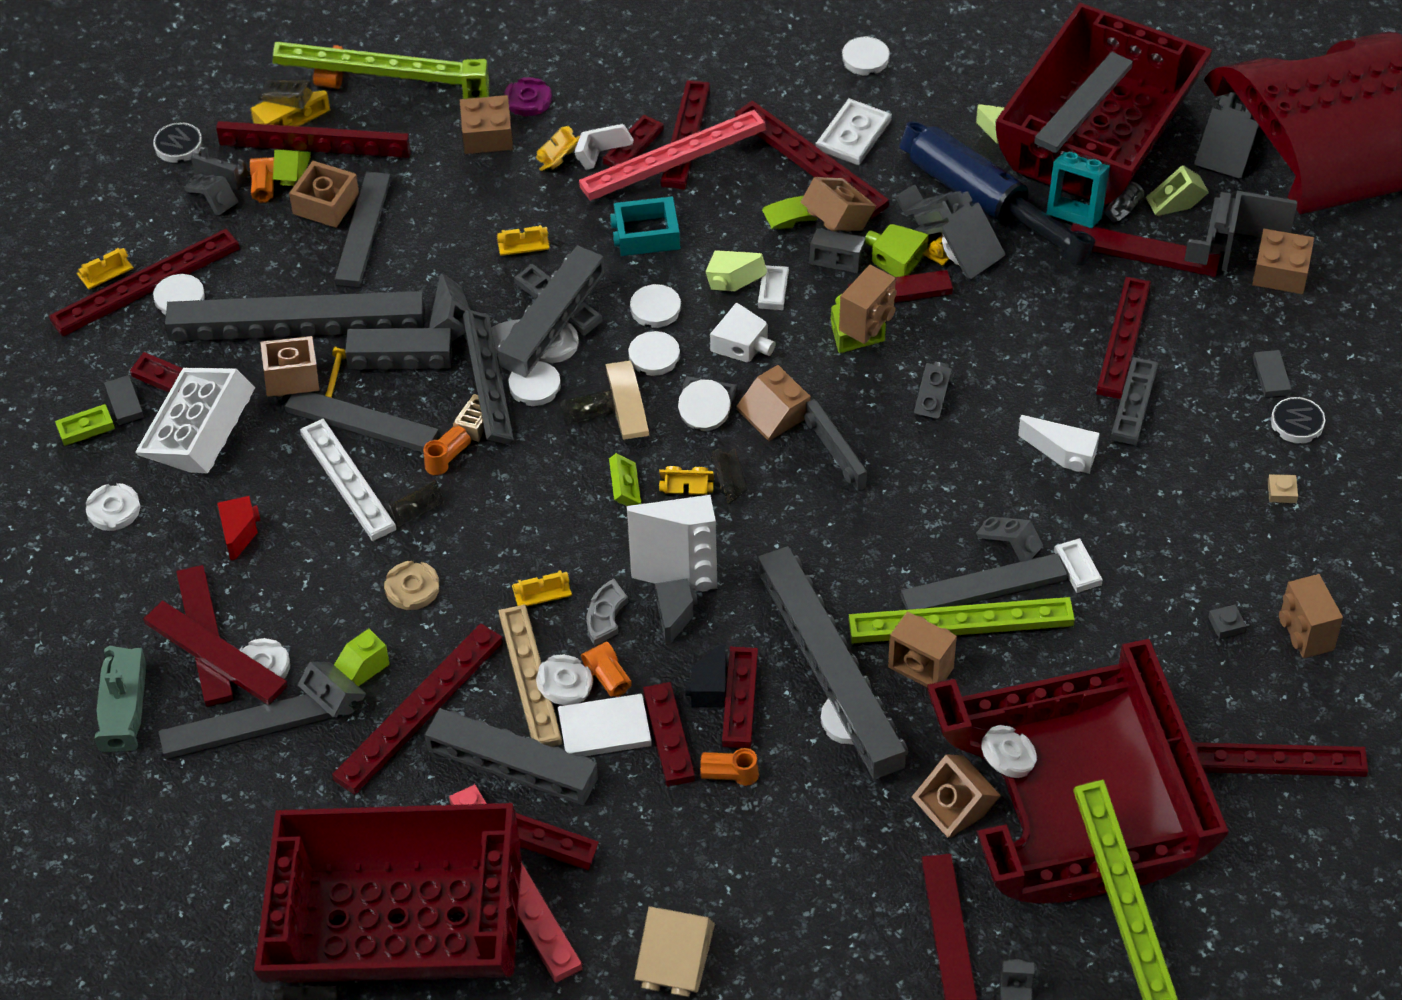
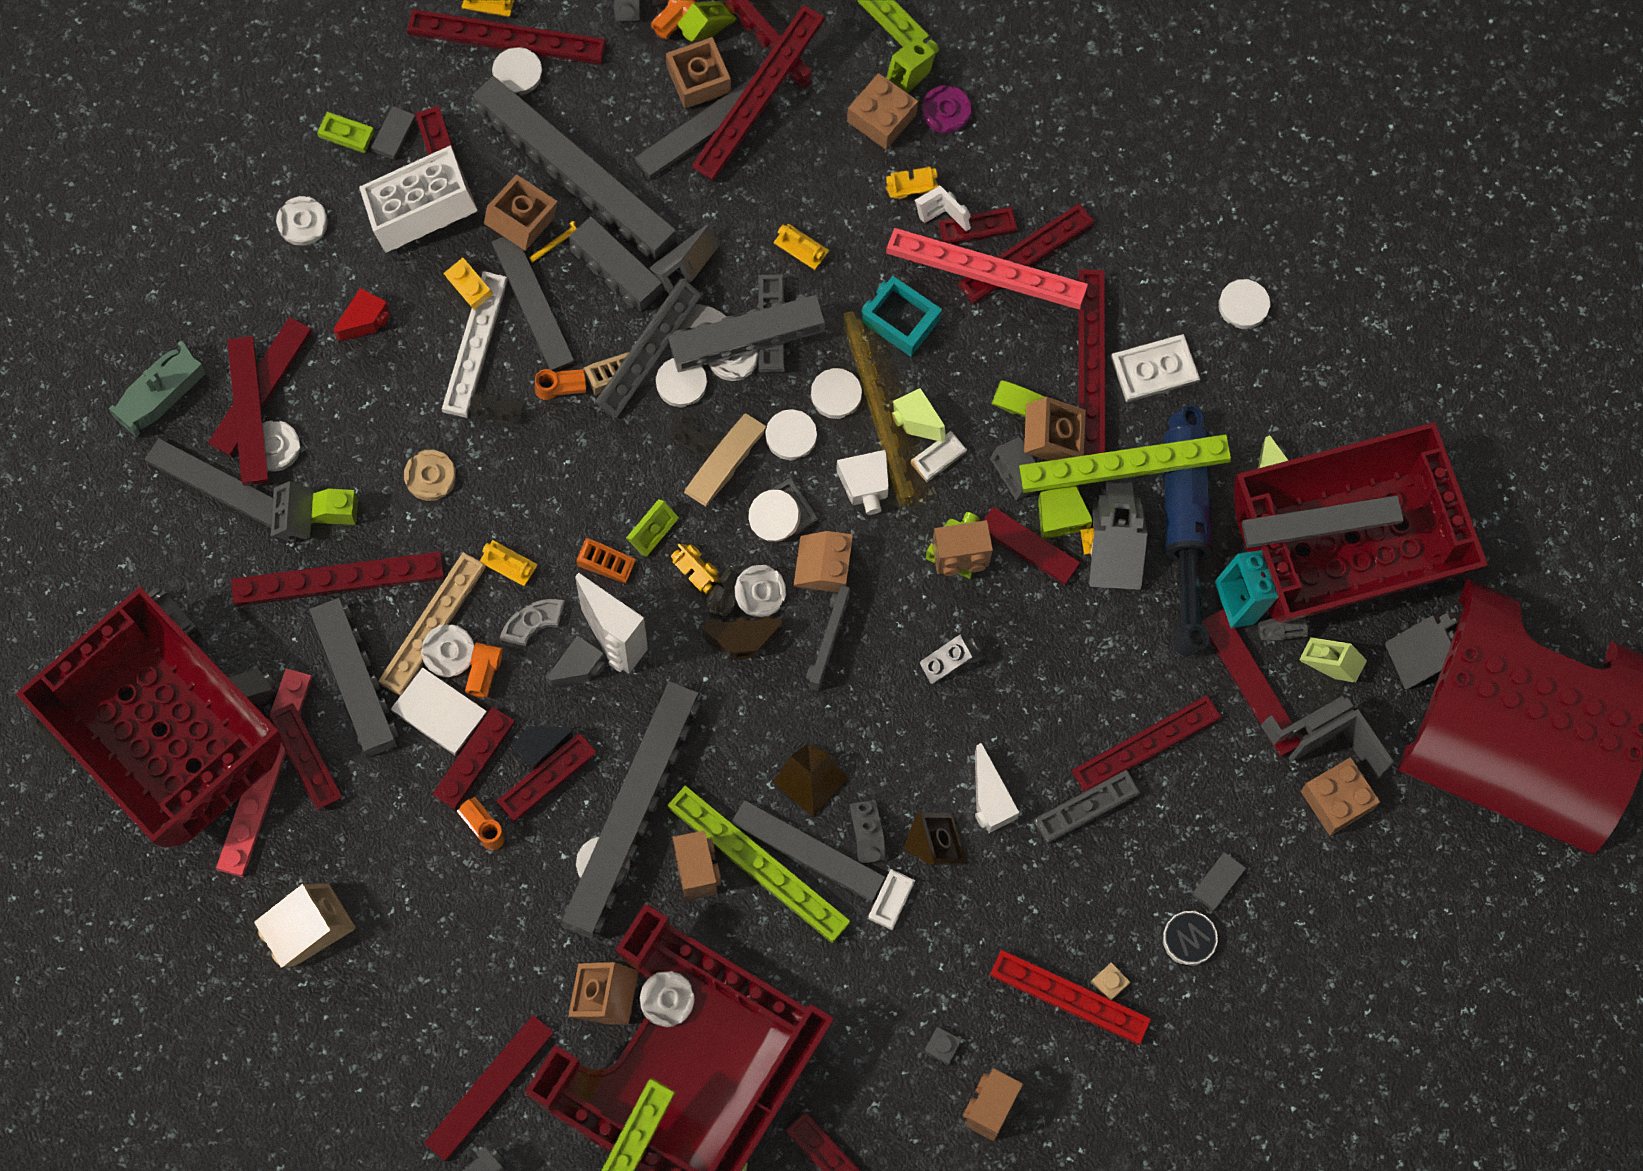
camera: 40 degrees right, 20 degrees up
(298, 443) = (468, 283): none -> yellow plate
(385, 172) = (758, 93): none -> dark red plate
(604, 525) = (598, 548): none -> orange slope
(692, 287) = (881, 418): none -> clear yellow plate
(752, 455) = (760, 590): none -> white tile
(772, 494) = (742, 637): none -> dark brown slope
(909, 181) = (1124, 463): none -> lime plate
(929, 539) = (810, 778): none -> dark brown slope
(1059, 501) = (935, 839): none -> dark brown slope
(1270, 517) = (1070, 997): none -> red plate

